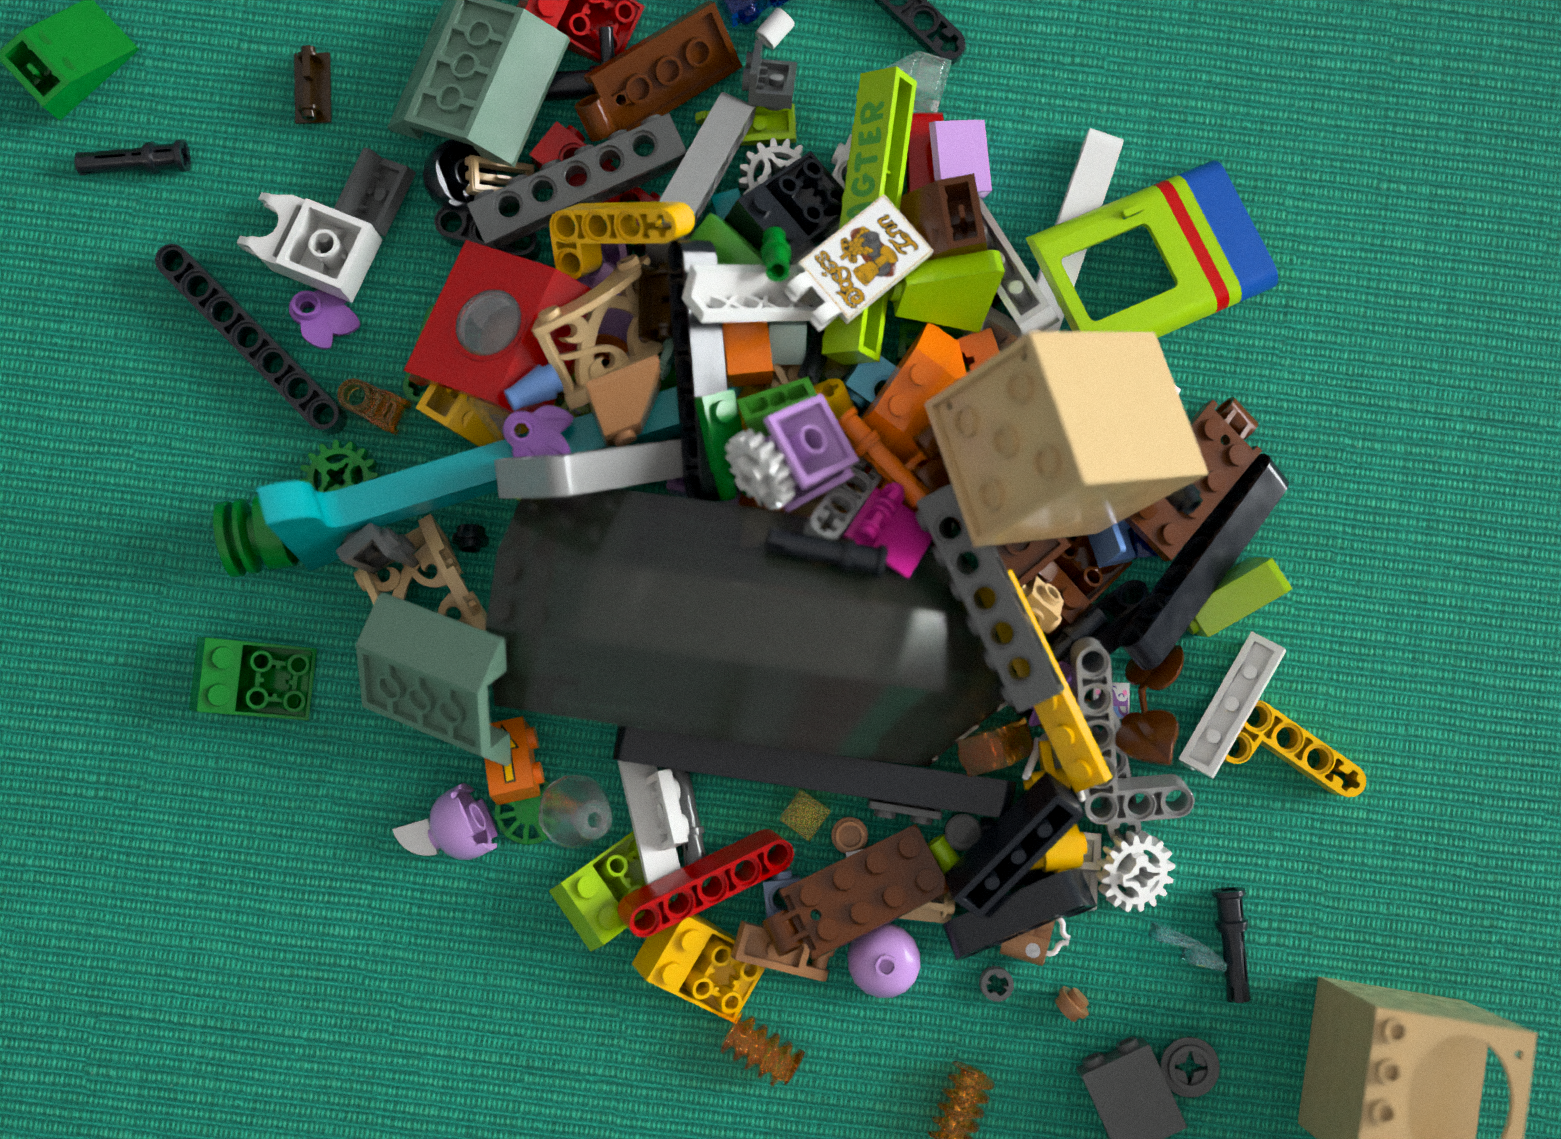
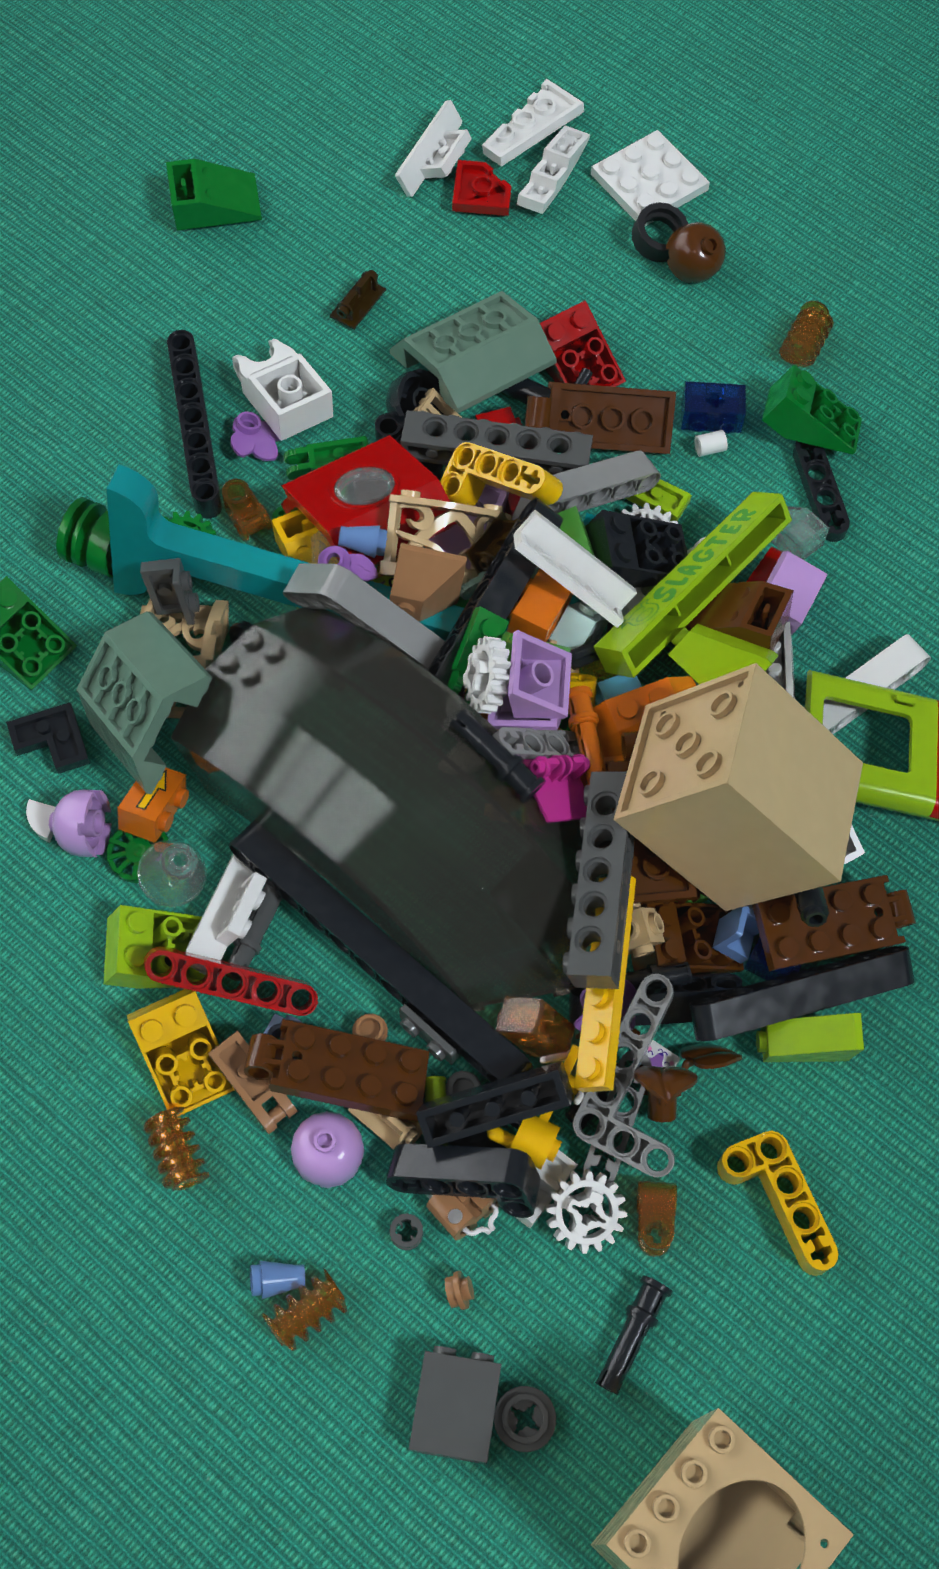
camera: 35 degrees right, 20 degrees down
(149, 158) = (216, 280): black pin -> none
(364, 746) = (51, 728): none -> black plate
(375, 190) = (352, 380): dark grey bracket -> none
(412, 290) = (320, 455): none -> green hinge
(768, 81) = (678, 467): dark grey bracket -> none
(776, 254) = (604, 548): green pin -> none
(804, 814) = (346, 987): clear yellow brick -> none
(859, 263) = (661, 594): tile -> none
(916, 1094) = (275, 1278): none -> medium blue cone
(1191, 832) = (656, 1211): none -> clear orange piece
(1192, 952) = (596, 1318): clear light blue slope -> none
(1232, 705) = (754, 1123): white fence -> none

